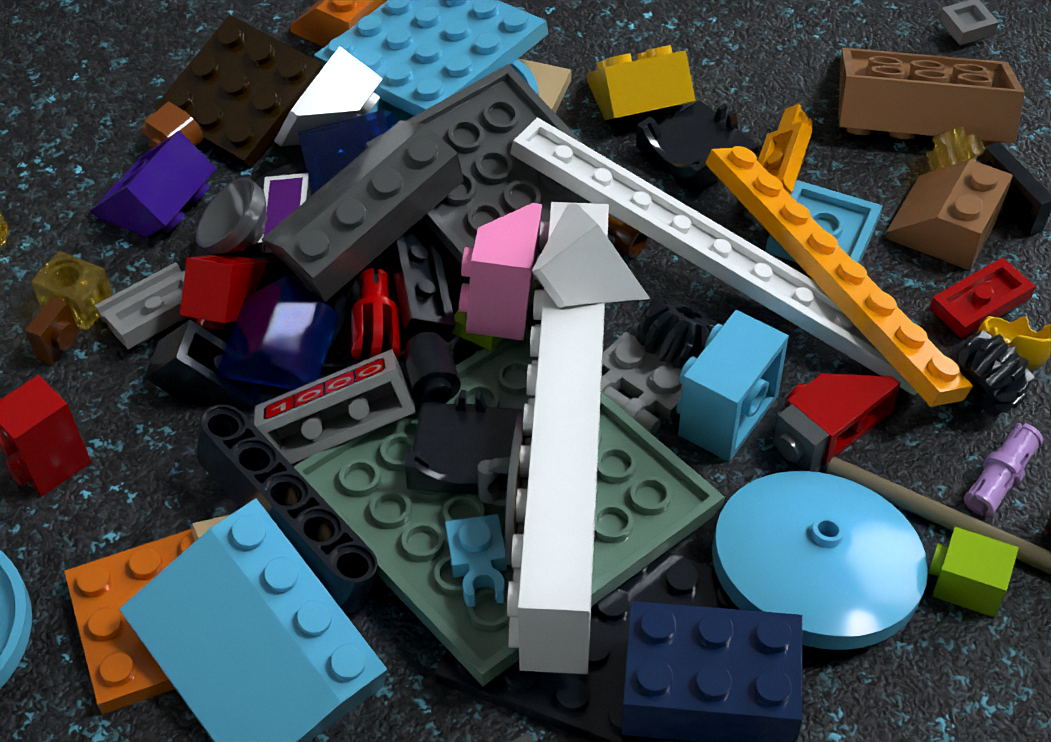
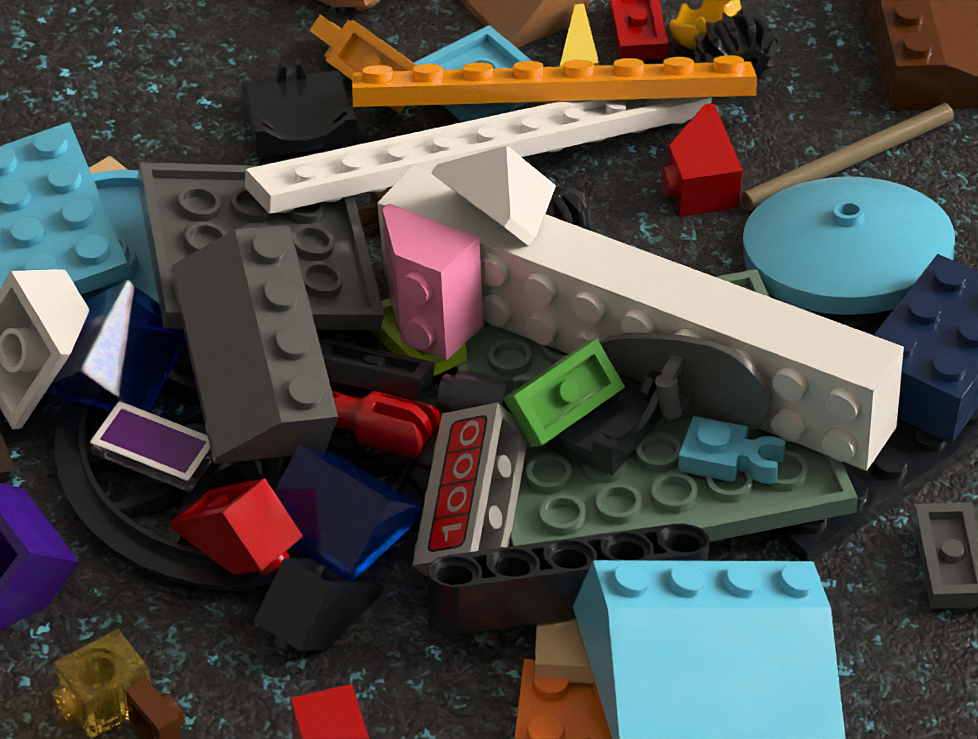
camera: 65 degrees left, 5 degrees down
(145, 307) = (180, 620): light grey plate -> none
(233, 218) = (125, 476): dark grey piece -> none
(447, 410) = (564, 393): none -> bright green plate
(649, 83) = (185, 110): yellow slope -> none
(731, 384) = (643, 197): medium azure brick -> none
(800, 439) = (715, 200): dark grey plate -> none
(915, 275) = (579, 40): none -> light yellow piece
(973, 571) = (920, 157): lime brick -> none
(1003, 469) = (826, 98): lavender pin -> none

